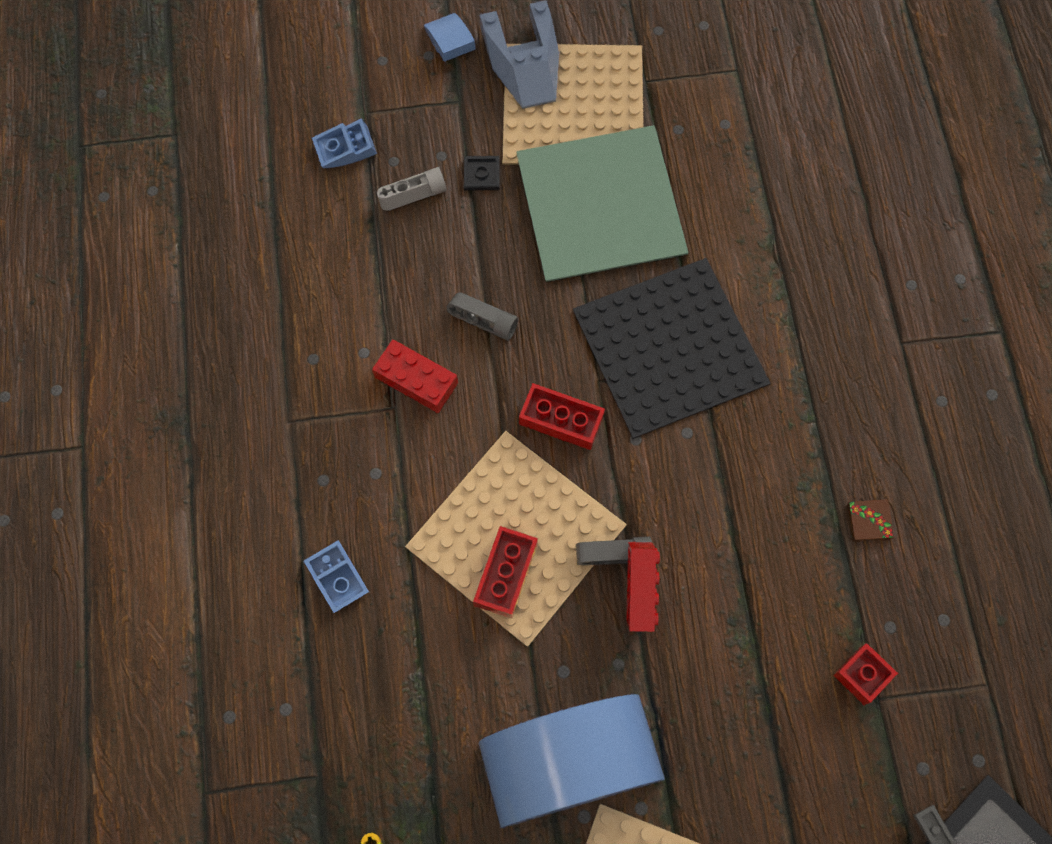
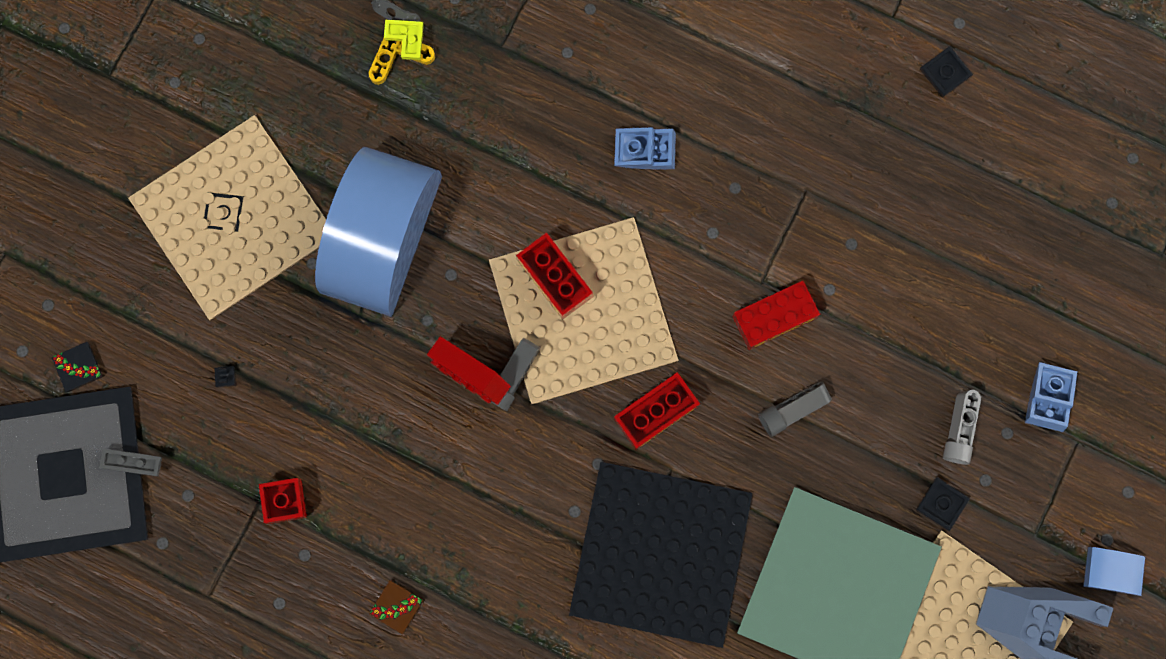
camera: 125 degrees right, 10 degrees up
(109, 374) = (946, 71): none -> black tile
(800, 812) = (225, 376): none -> black tile

